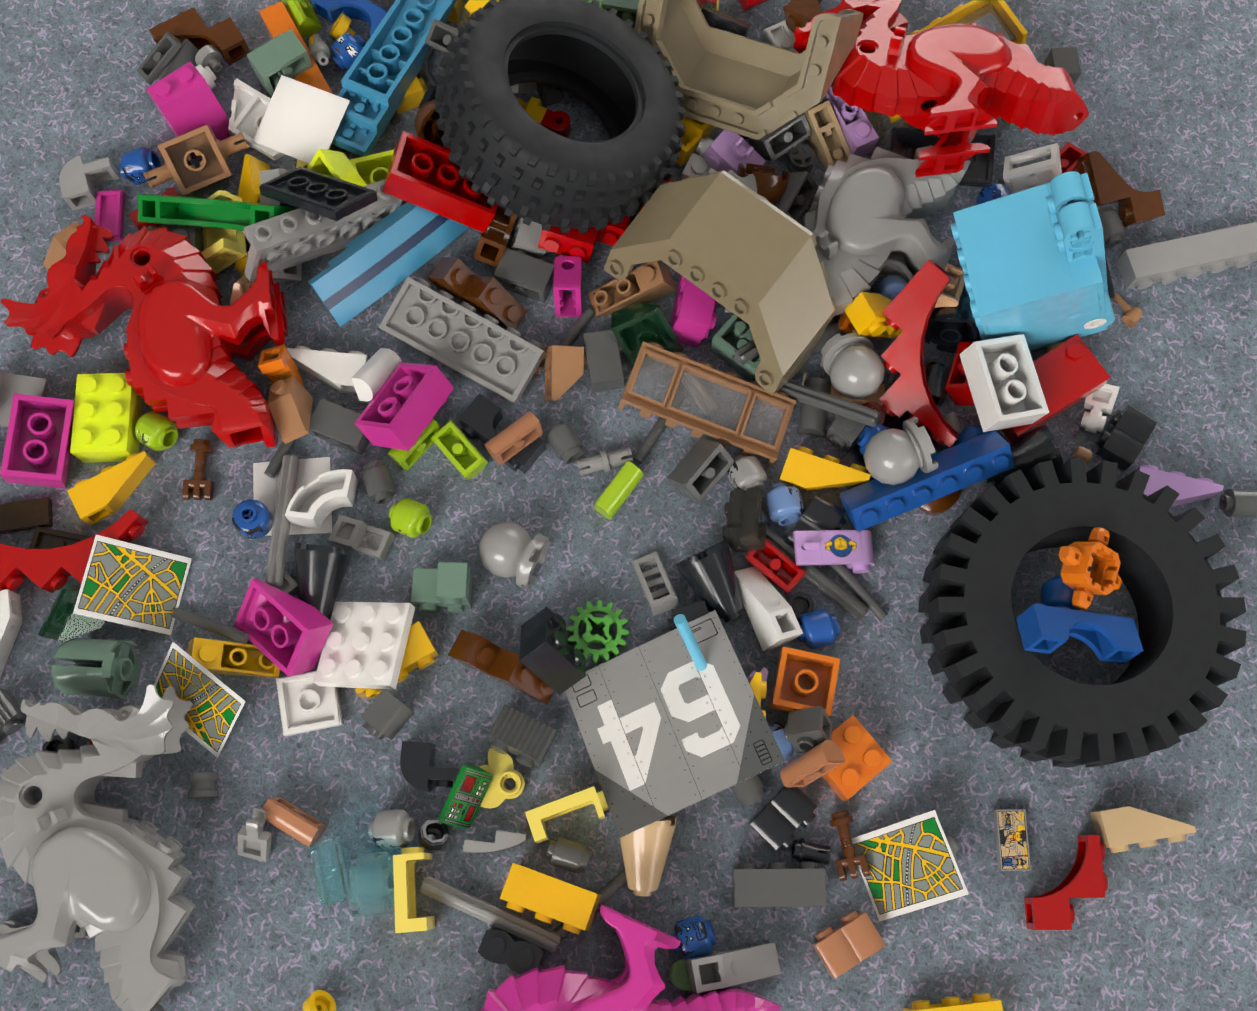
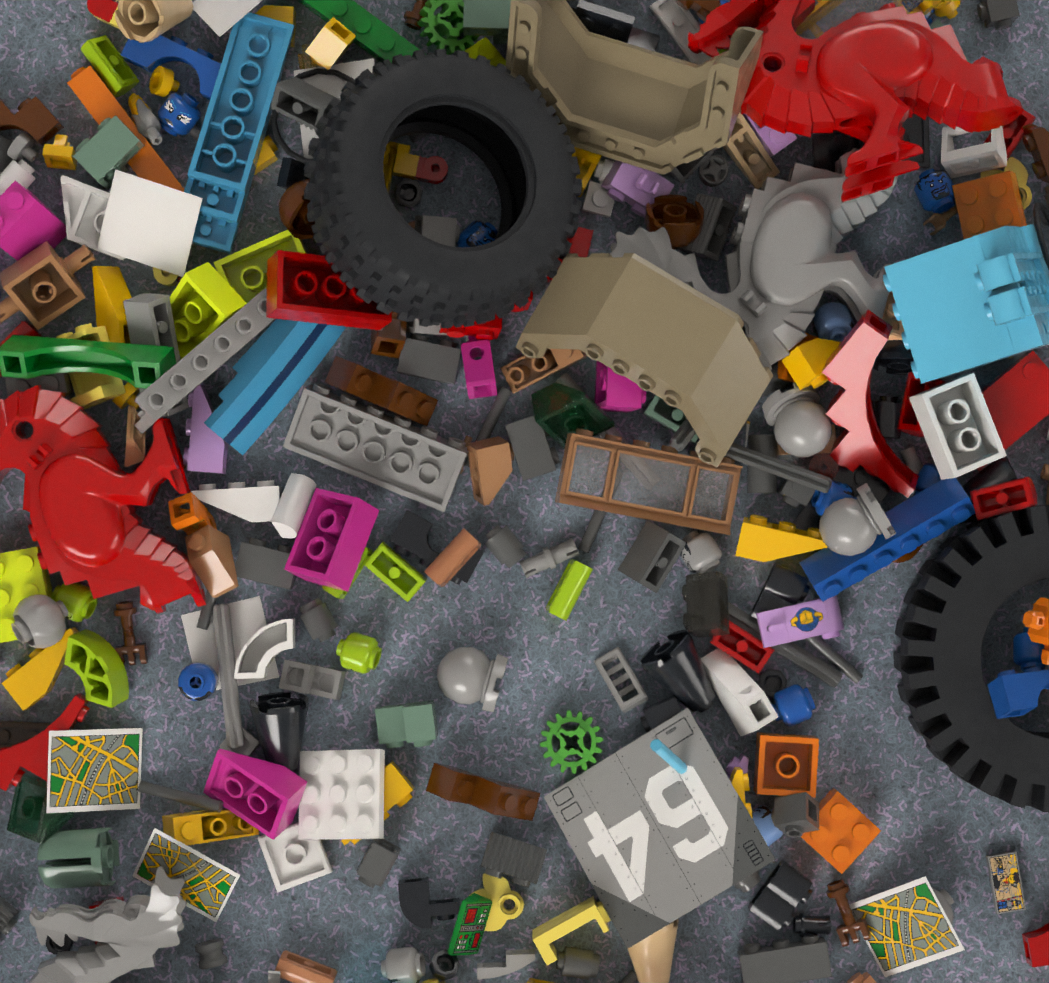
camera: 10 degrees left, 15 degrees up
(114, 434) = (39, 621): none -> light grey plant
(162, 492) = (98, 667): none -> lime brick
(239, 68) = (60, 154): none -> yellow tile
(309, 317) = (206, 449): none -> lavender slope
(318, 193) = (200, 335): black plate -> none
(547, 652) = (525, 776): black brick -> none
(784, 504) = (743, 579): medium blue head -> none
(812, 765) = (802, 848): nougat brick -> none
(1030, 452) = (1004, 497): none -> red brick

